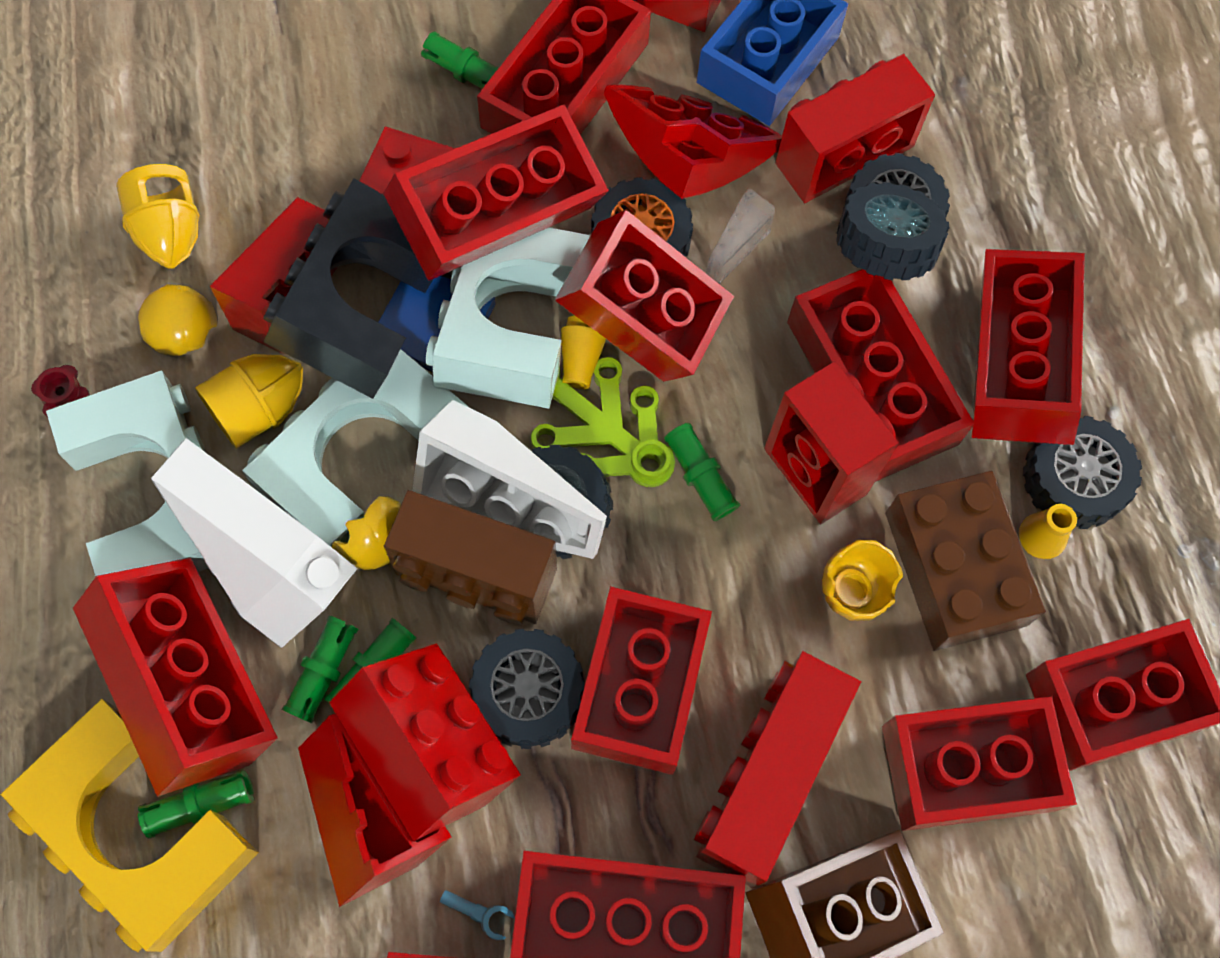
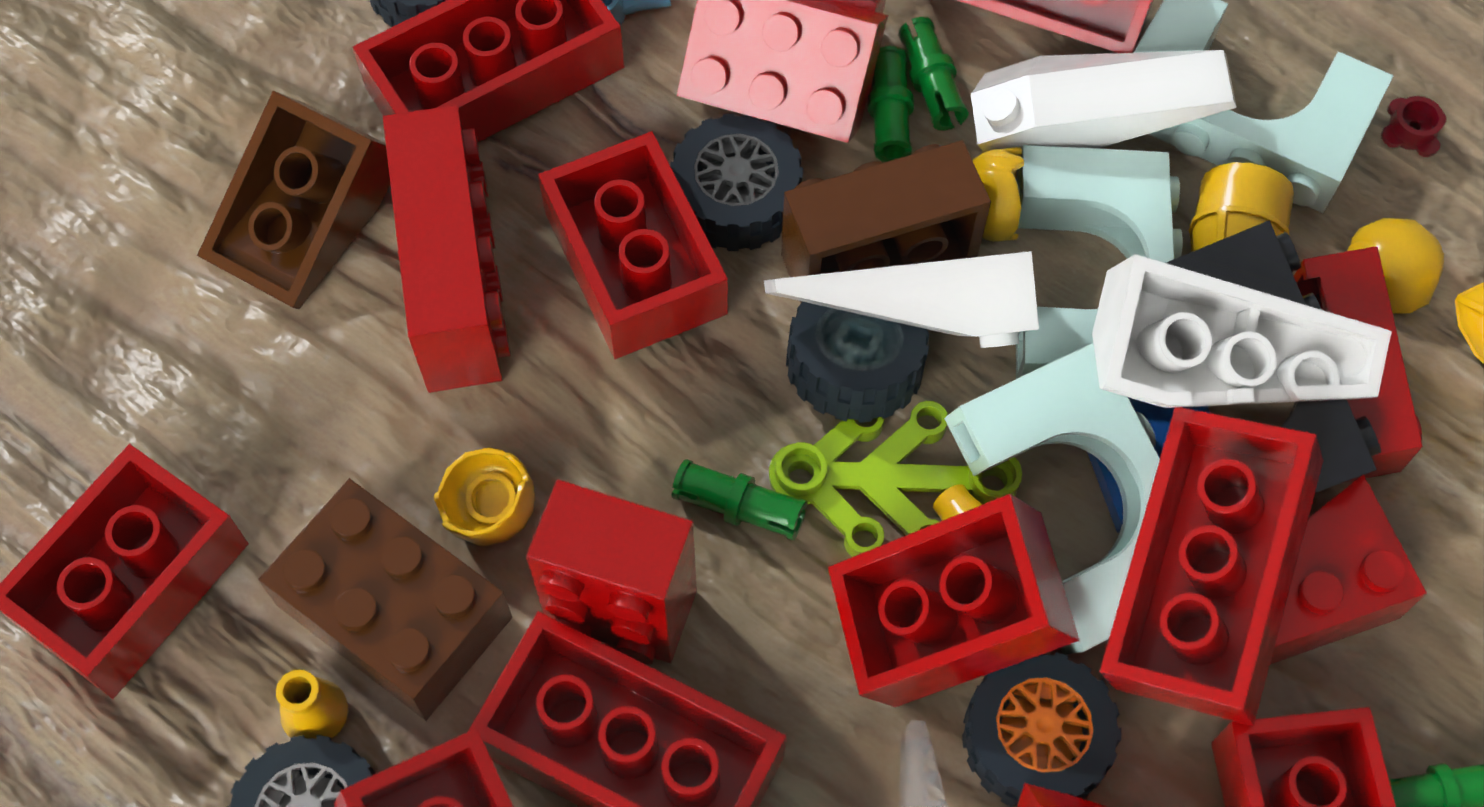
camera: 145 degrees right, 5 degrees down
(388, 288) = (1212, 343): none -> white wedge
(977, 763) = (247, 393): red brick -> none

